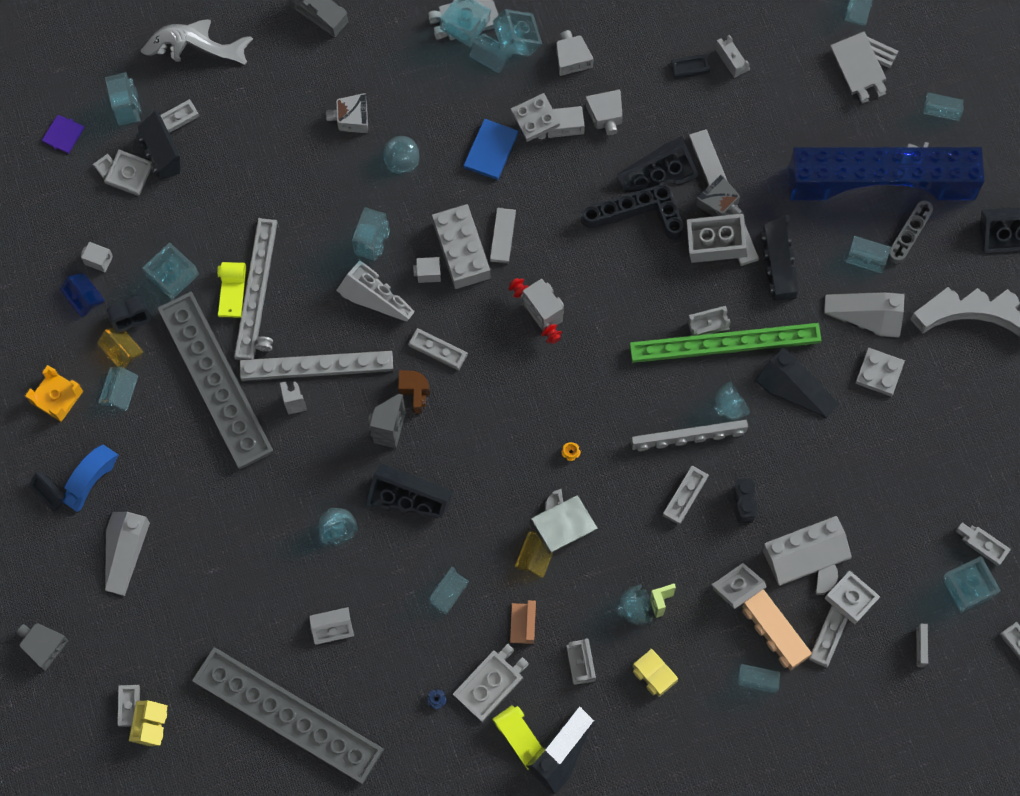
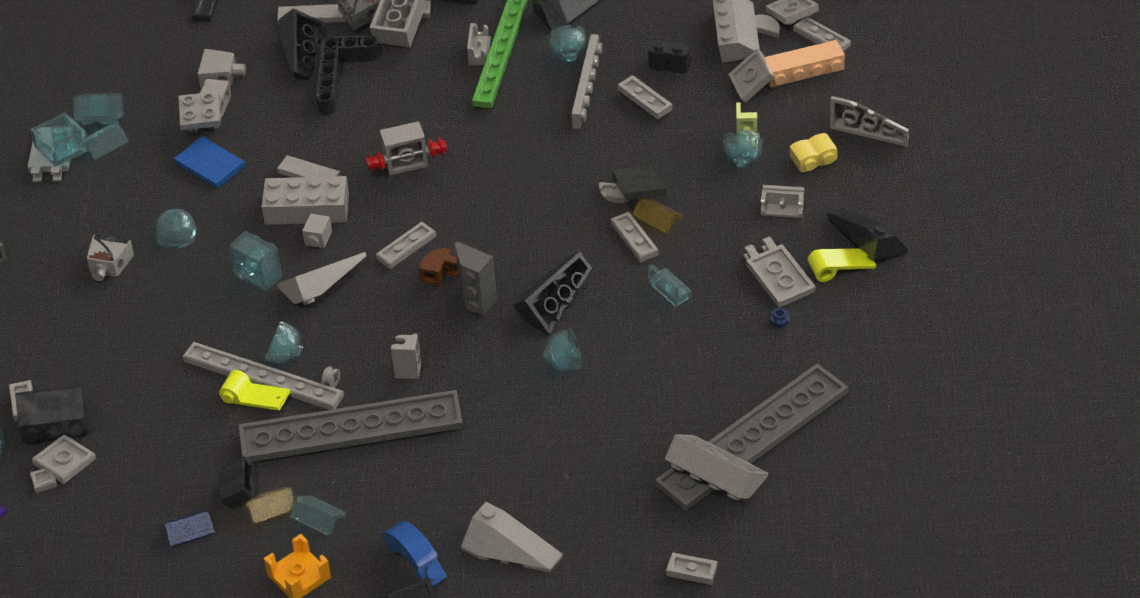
camera: 70 degrees left, 25 degrees down
(96, 256) = (151, 501): light grey brick -> none
(147, 723) = (720, 550): light yellow piece -> none
(170, 271) = (206, 434): clear light blue brick -> none
(233, 694) = (715, 466): none -> light grey slope
(285, 294) = (284, 345): none -> clear light blue cylinder
(316, 365) = (375, 343): light grey plate -> none
(331, 625) = (669, 381): light grey panel -> none
(503, 541) = (634, 237): none -> light grey tile
(523, 623) = (726, 234): nougat panel -> none
(570, 456) = (563, 167): light orange plate -> none
(572, 54) = (143, 80): light grey torso -> none
(714, 695) = (862, 121): none -> light grey wedge
(758, 678) = (847, 84): clear light blue panel -> none

